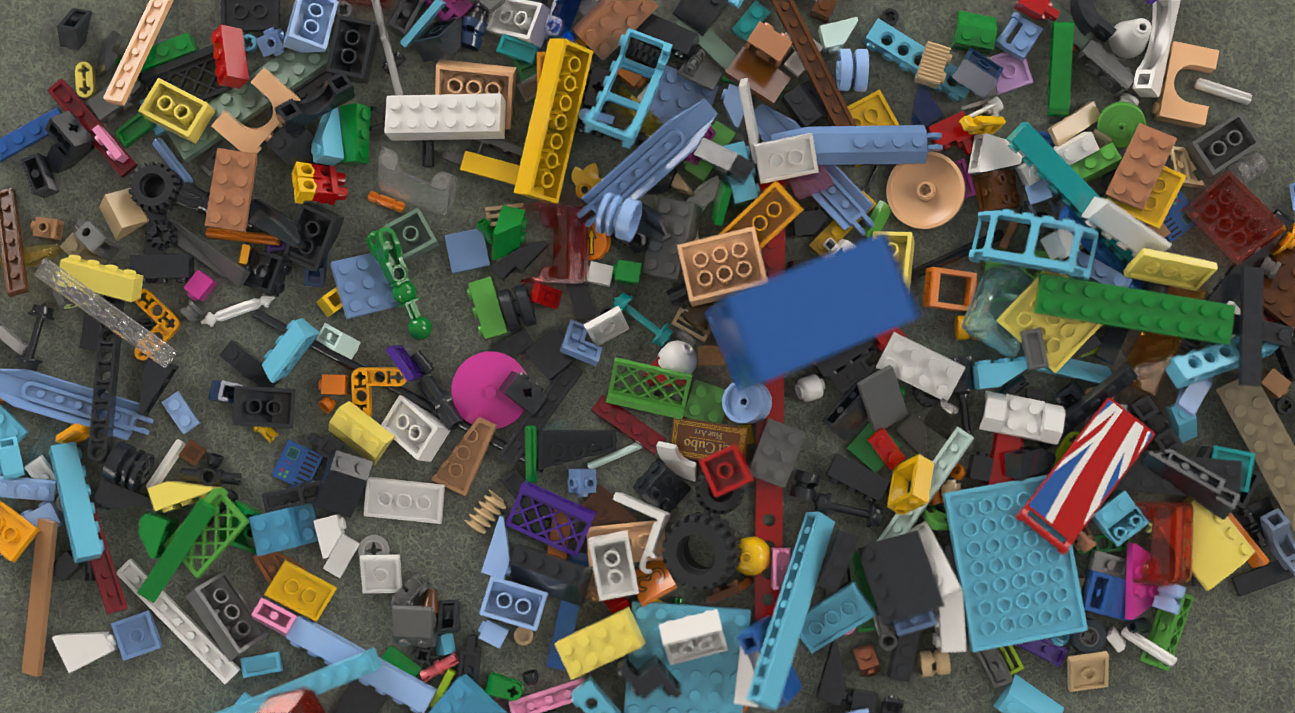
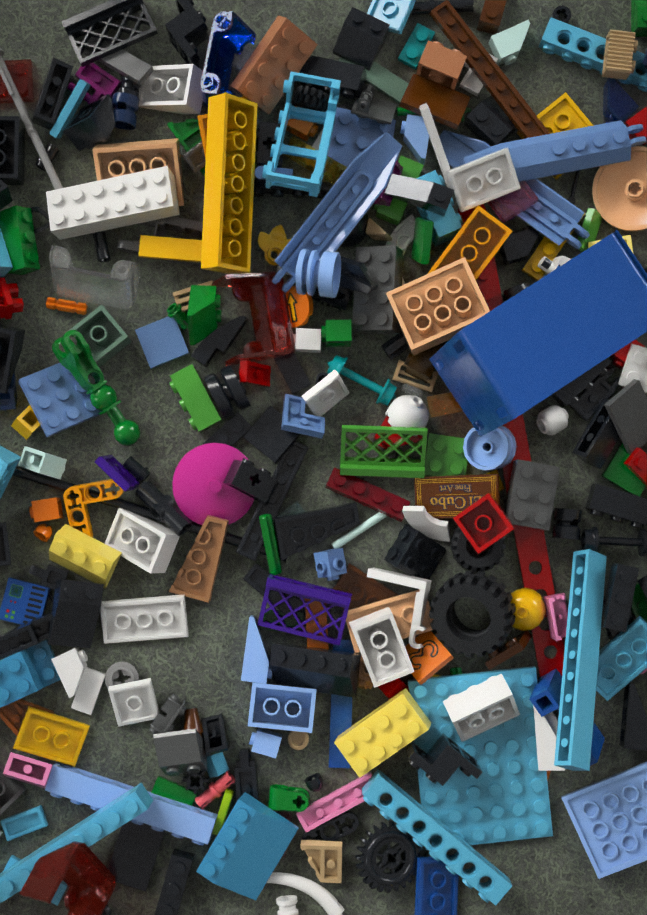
camera: 15 degrees left, 0 degrees up
(486, 512) = (234, 615): tan piece -> none
(517, 49) = (176, 119): teal tile -> none
(852, 70) = (534, 75): light blue wheel -> none

